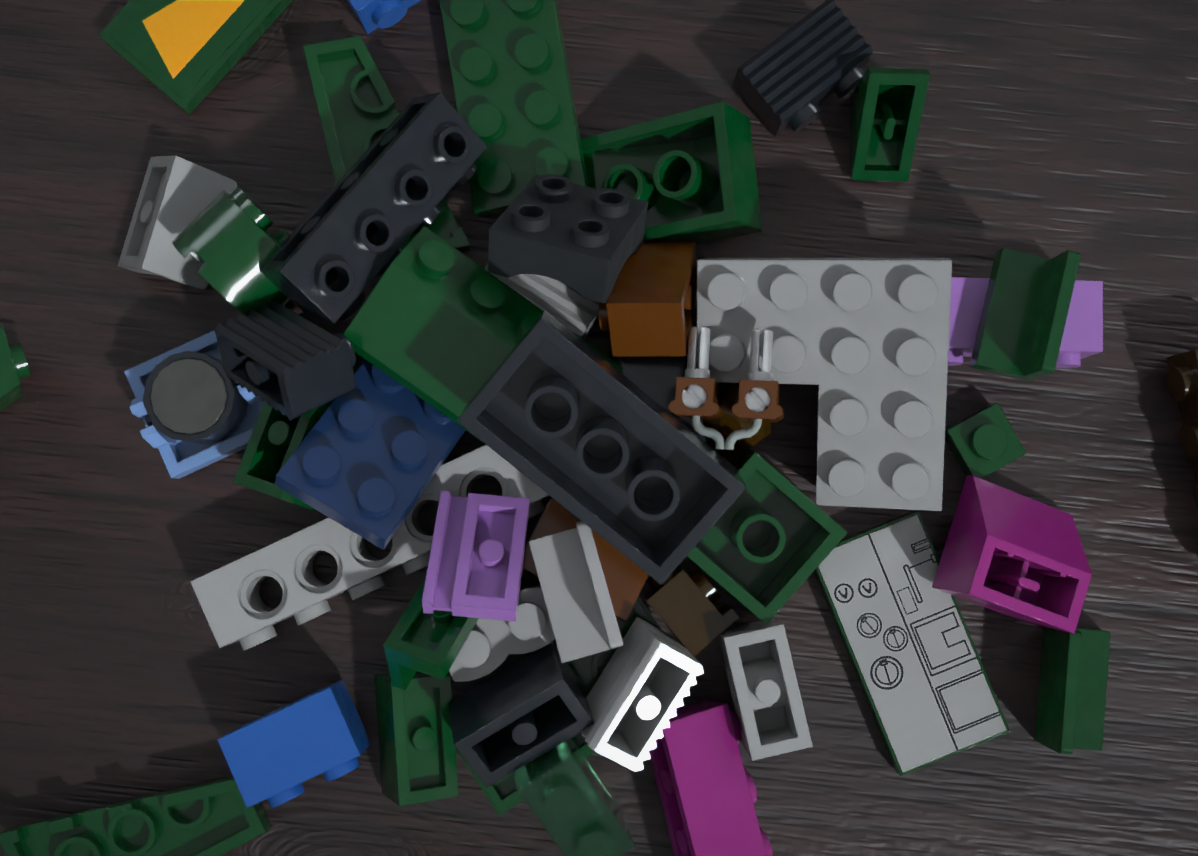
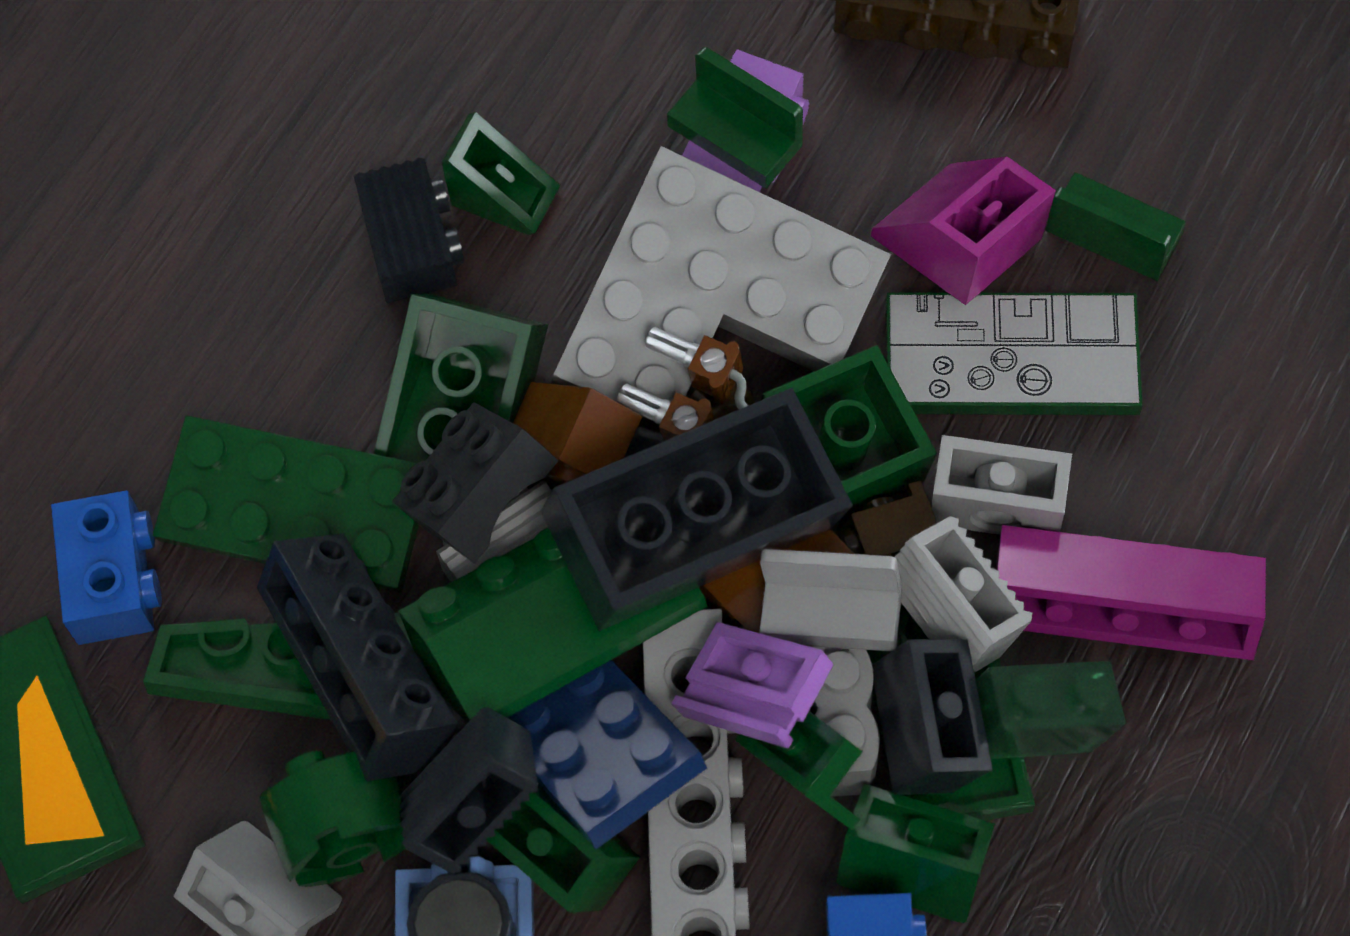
camera: 60 degrees left, 20 degrees down
(984, 442) = (847, 207): dark green plate -> none

